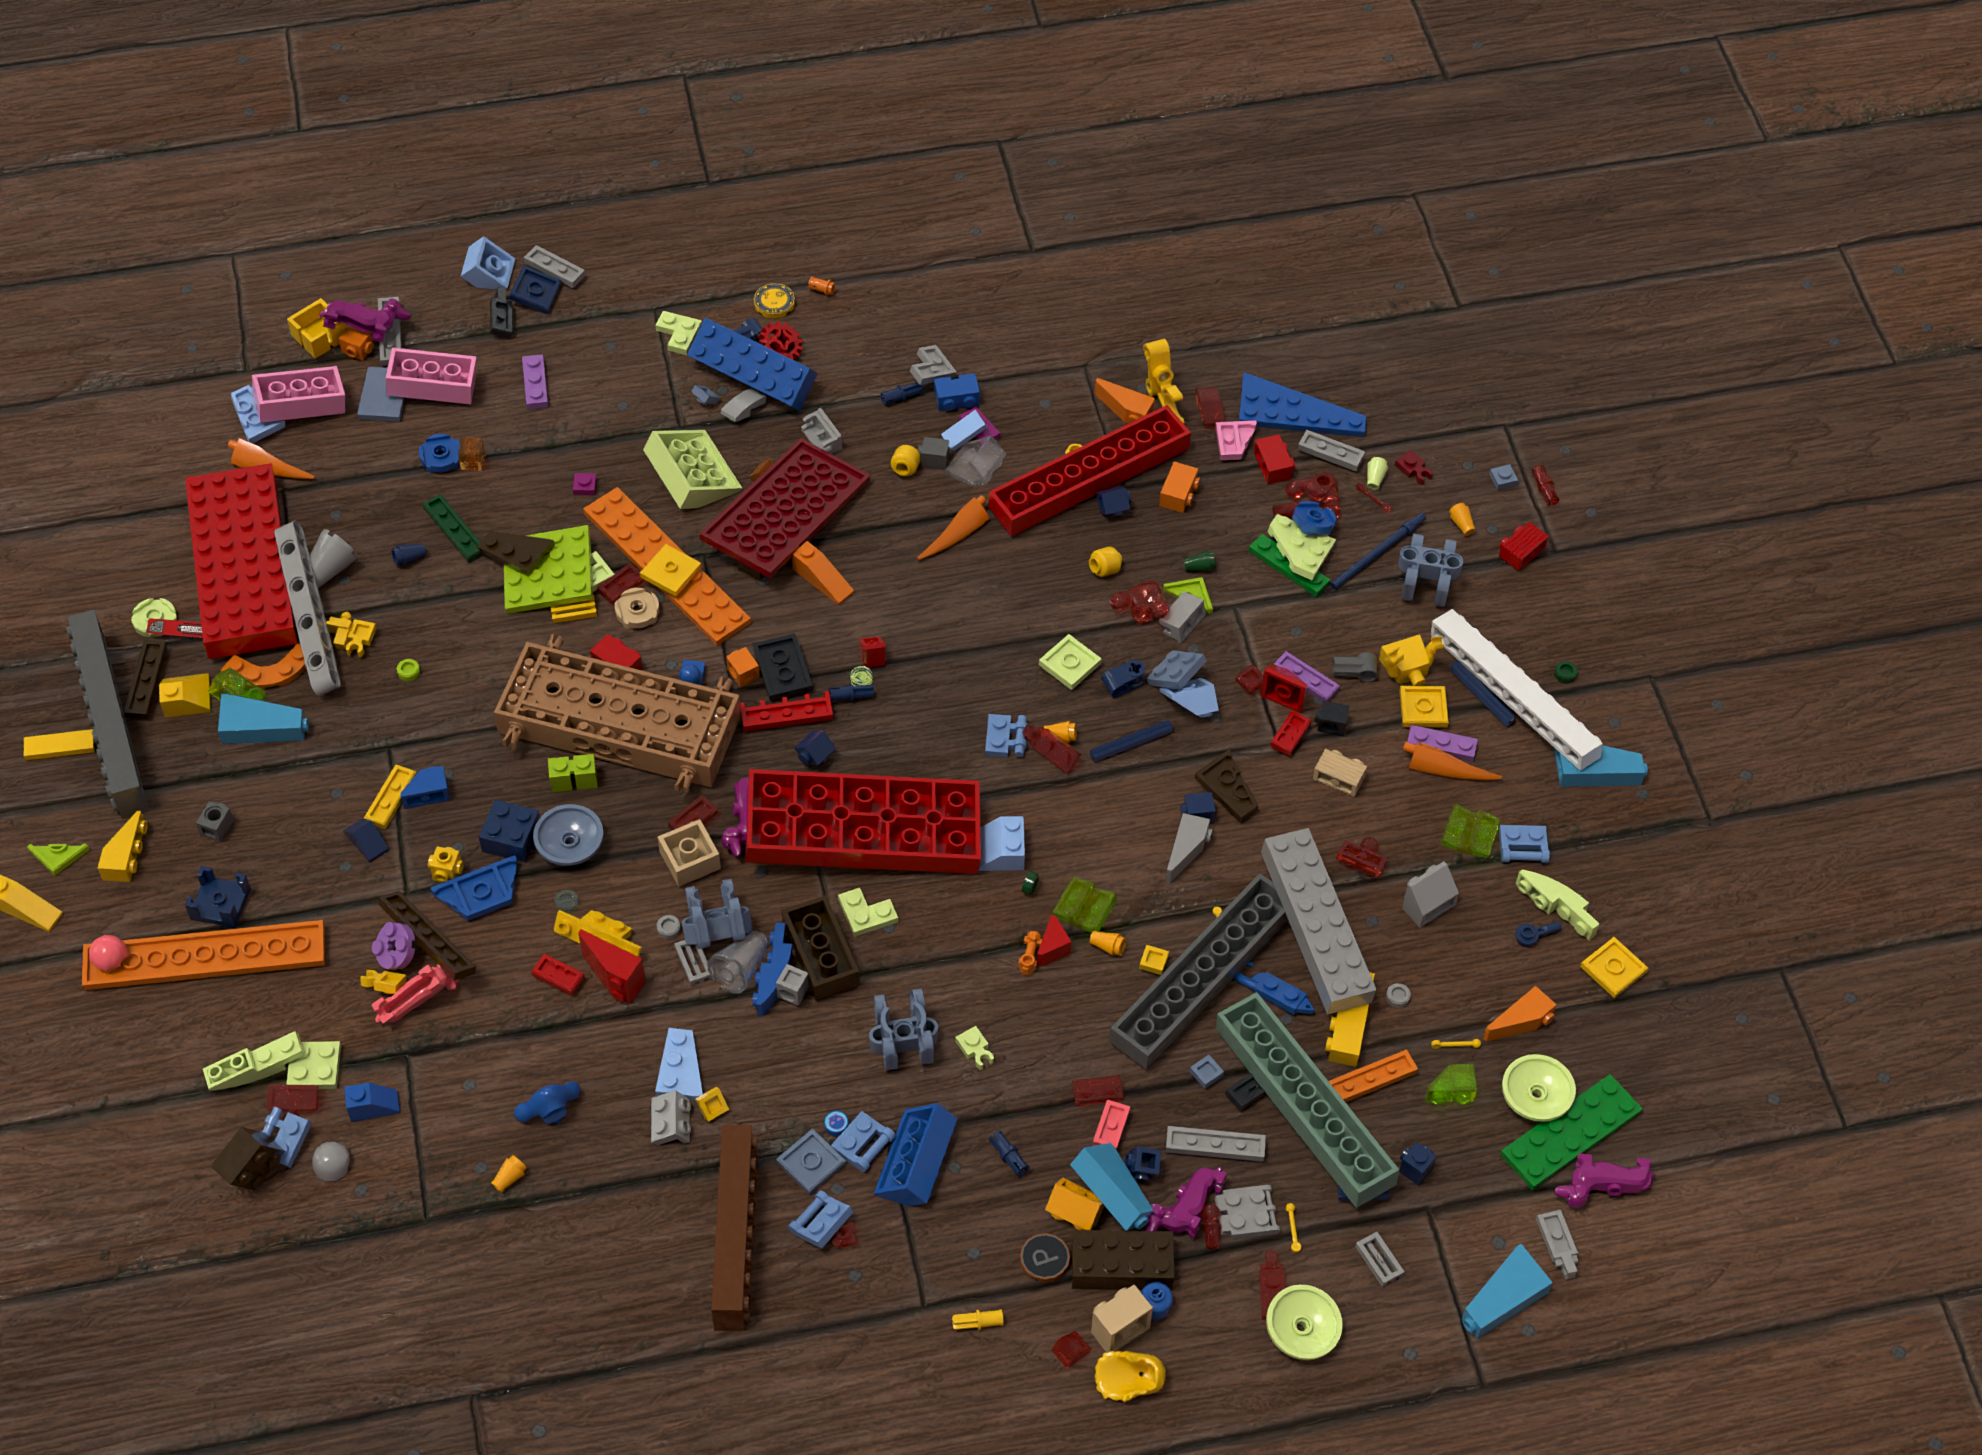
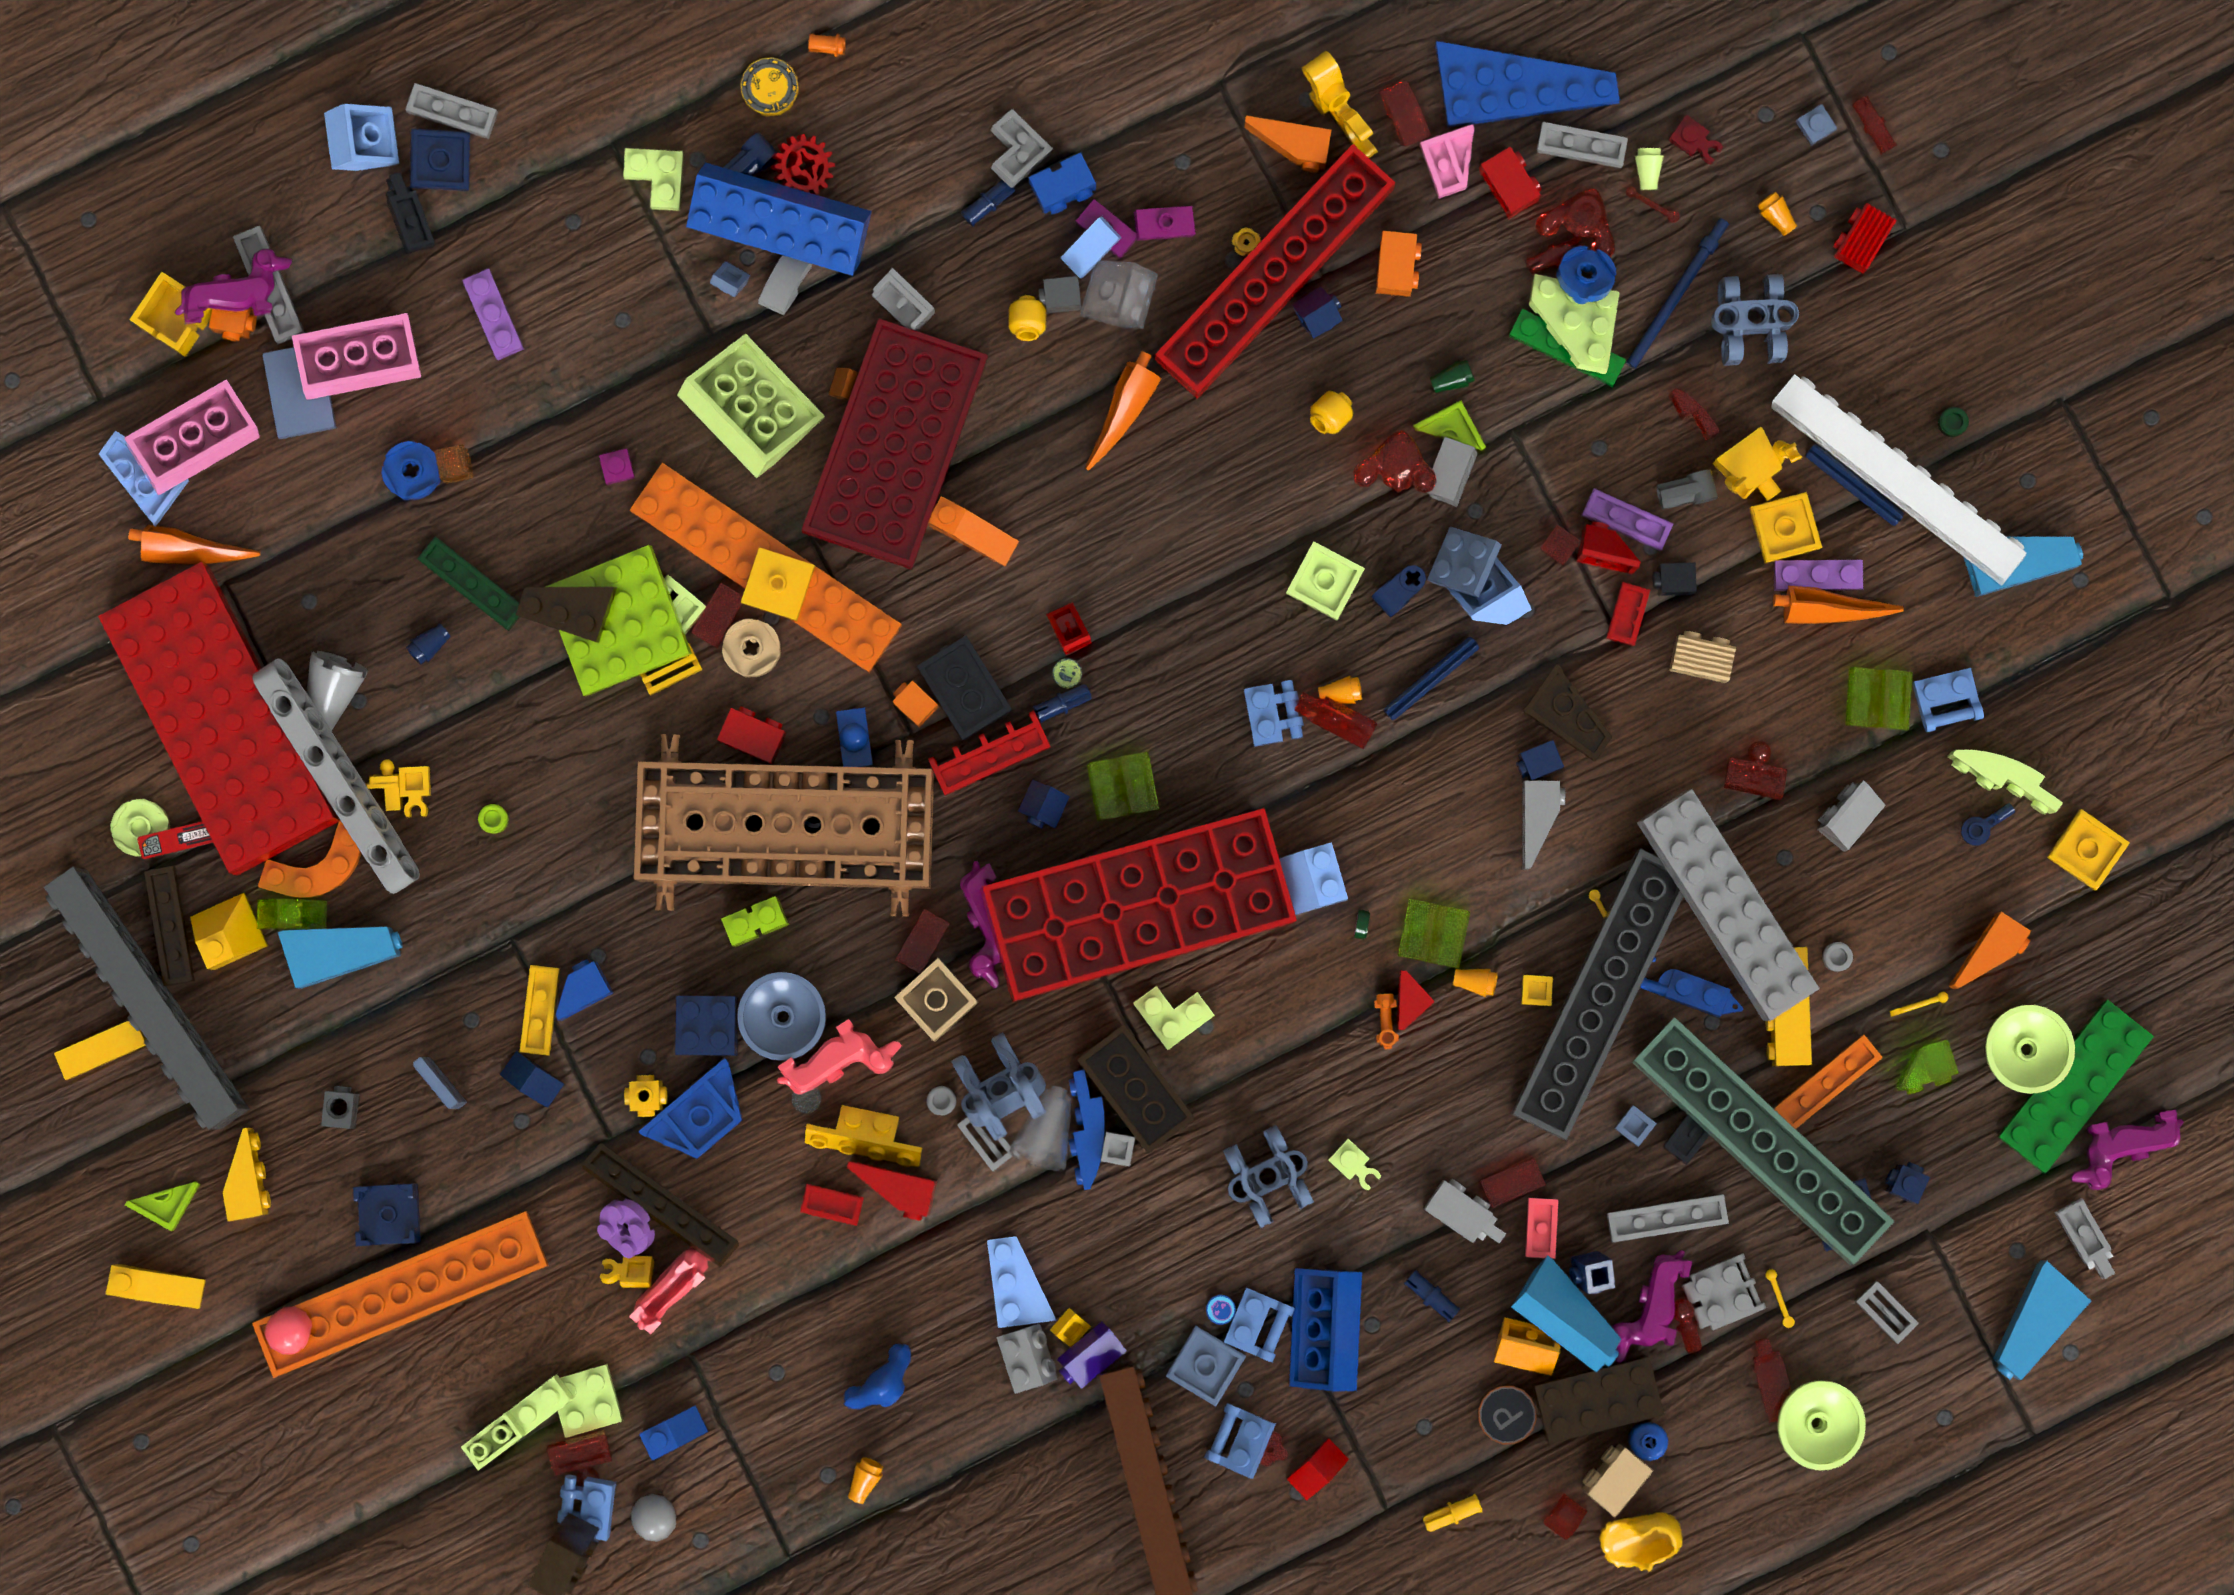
camera: 10 degrees left, 30 degrees up
(295, 816) = (439, 1083): none -> sand blue tile
(599, 873) = (835, 1056): none -> coral animal
(709, 1128) = (1090, 1355): none -> dark purple brick
(876, 1258) = (1318, 1469): none -> red slope
(878, 755) = (1122, 786): none -> clear neon green slope
(1021, 430) = (1164, 223): none -> magenta plate
(1050, 1098) = (1463, 1214): none -> light grey hinge
(1371, 619) = (1688, 407): none -> clear red slope

